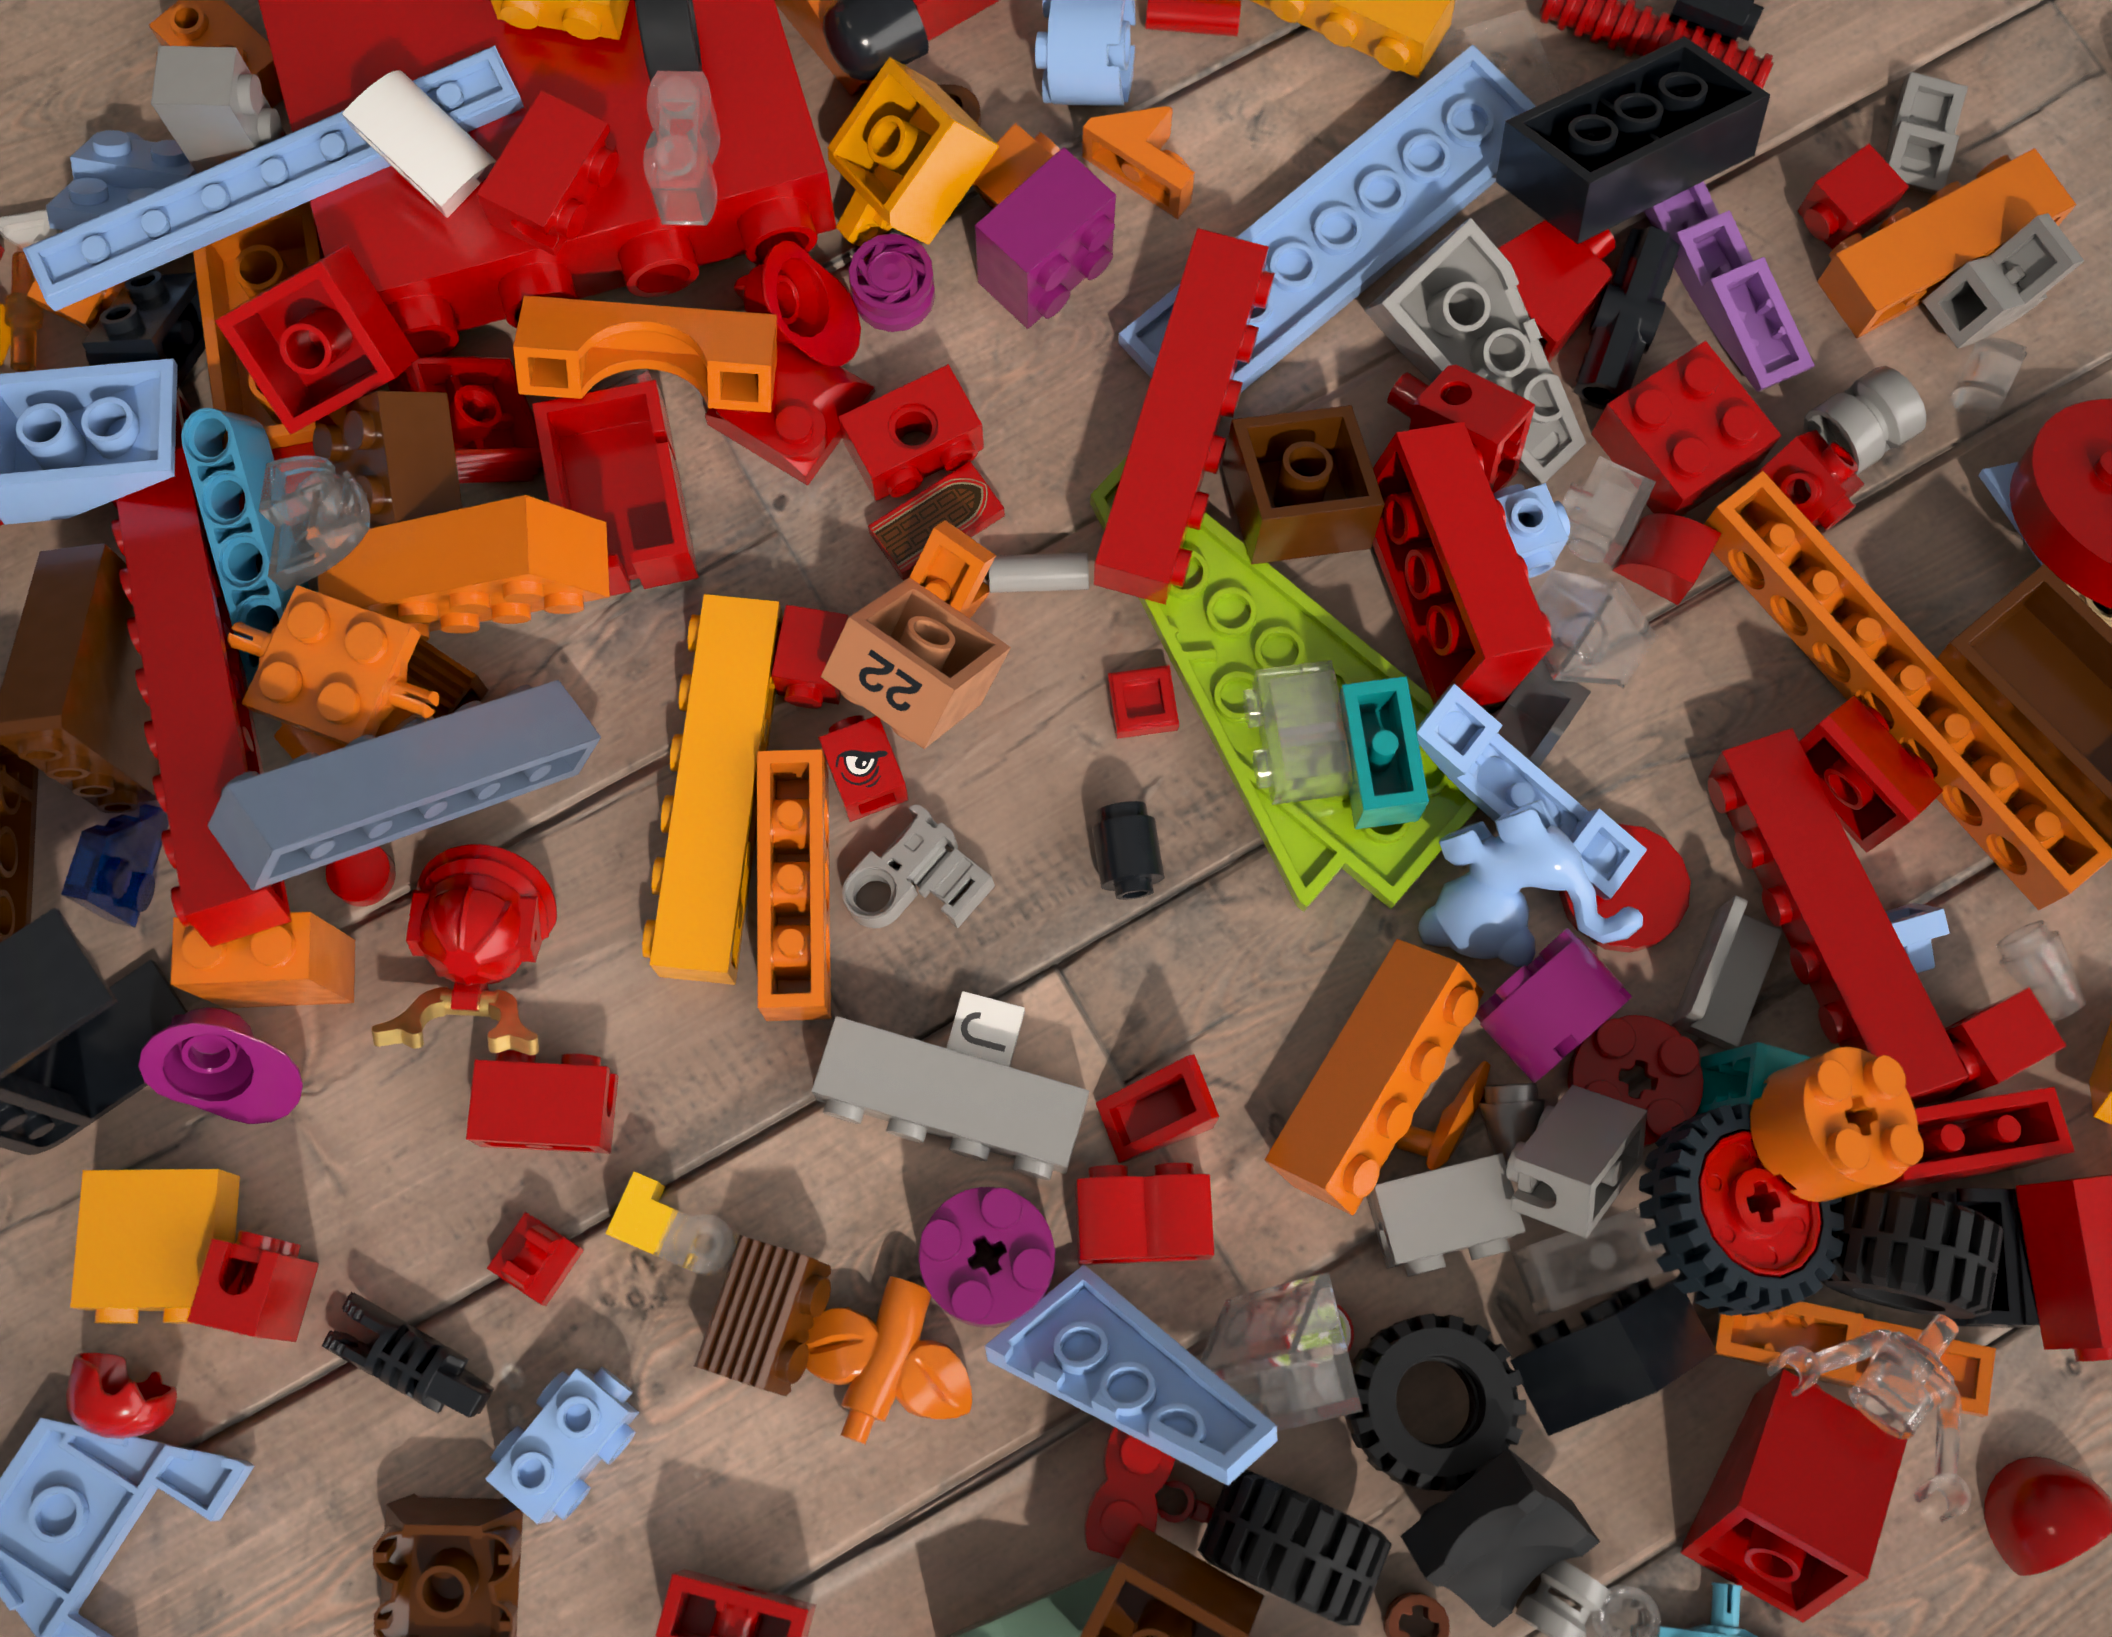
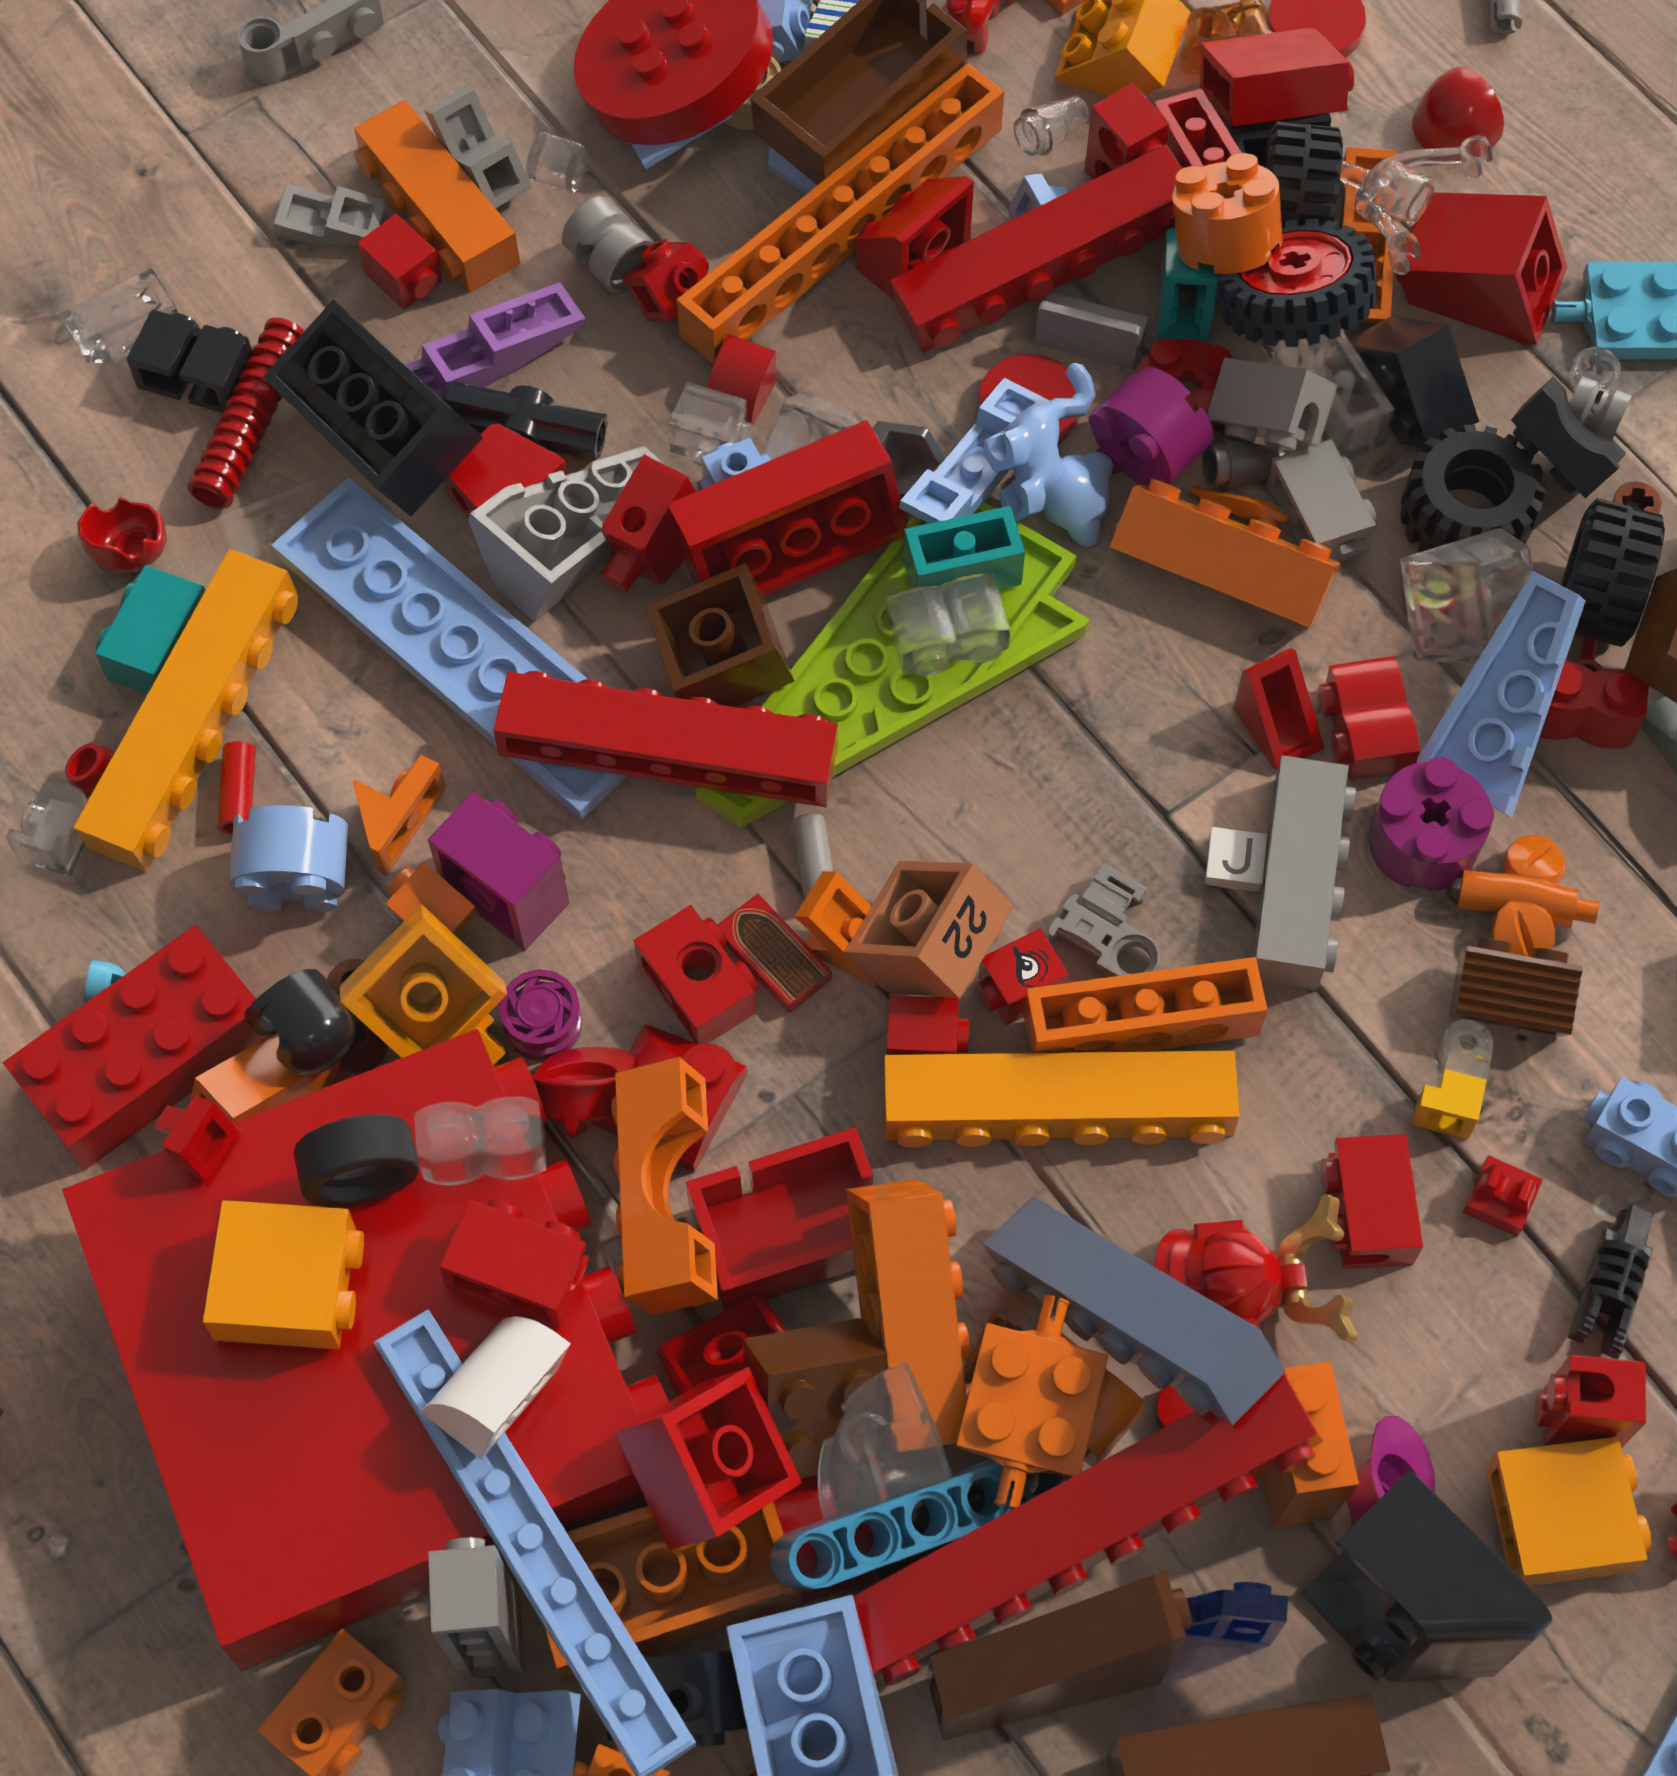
camera: 95 degrees left, 10 degrees down
(1127, 850) = (1062, 759): black brick -> none
(1143, 701) = (921, 768): red tile -> none
(1686, 431) = (631, 369): red brick -> none

